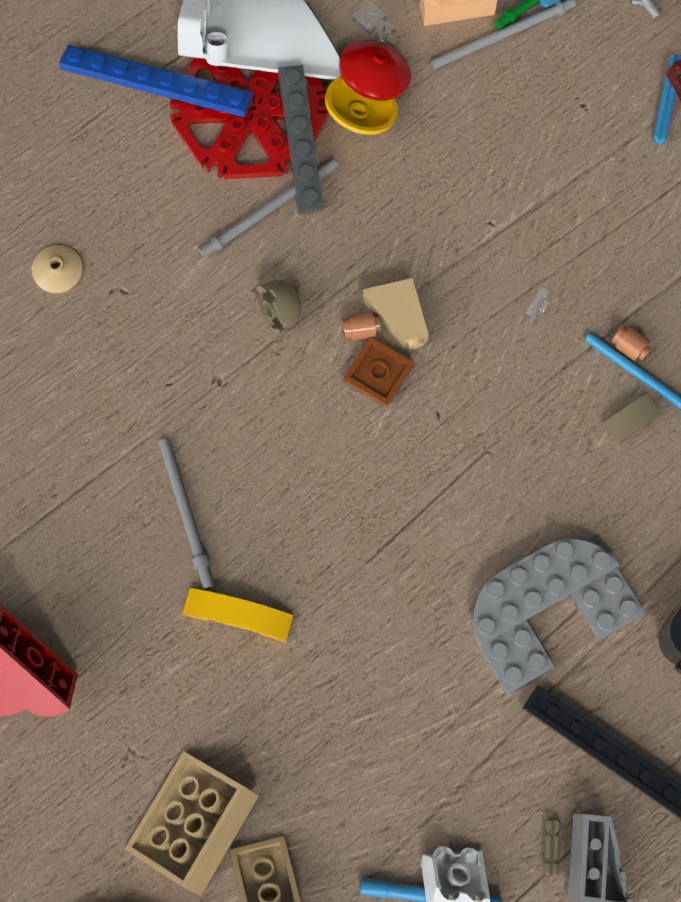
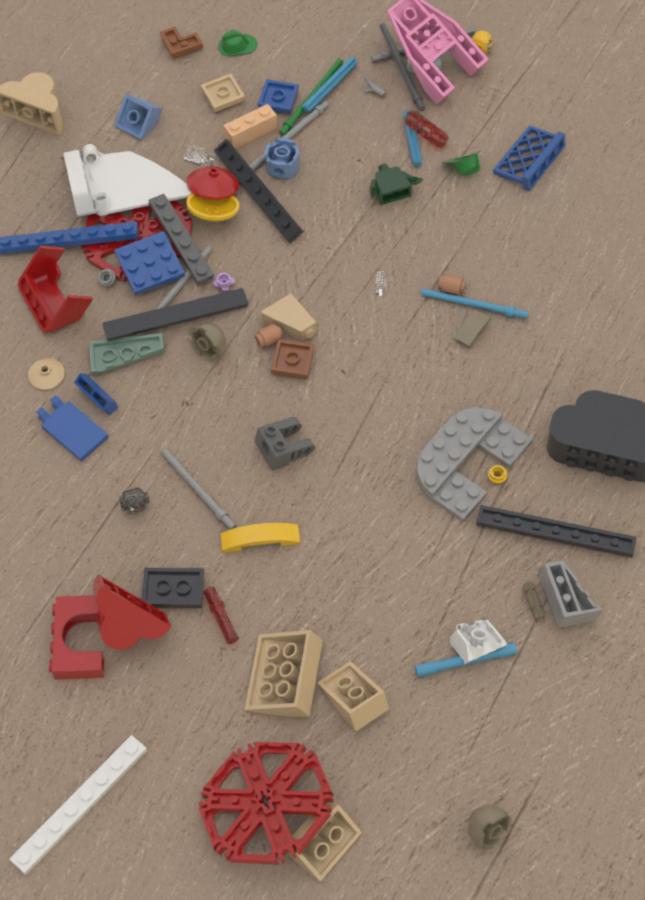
camera: 15 degrees left, 15 degrees down
(59, 363) = (72, 428): none -> blue tile
(96, 154) = (43, 295): none -> red windscreen
(97, 500) = (134, 500): none -> clear smoke head
(100, 643) = (173, 587): none -> black plate
(108, 324) = (111, 404): none -> blue piece
(145, 712) = (217, 608): none -> clear red pin
(162, 275) = (123, 351): none -> sand green wing
(178, 158) = (102, 276): none -> light grey plate
(246, 160) = (149, 263): none -> blue plate
(251, 248) = (175, 314): none -> black tile
(305, 496) = (274, 446): none -> dark grey brick
(334, 215) = (224, 277): none -> lavender plate
(431, 103) = (258, 191): none -> black tile
(481, 67) = (282, 158): none -> medium blue brick
(584, 641) = (497, 469): none -> yellow plate
(612, 161) = (392, 184): none -> dark green torso

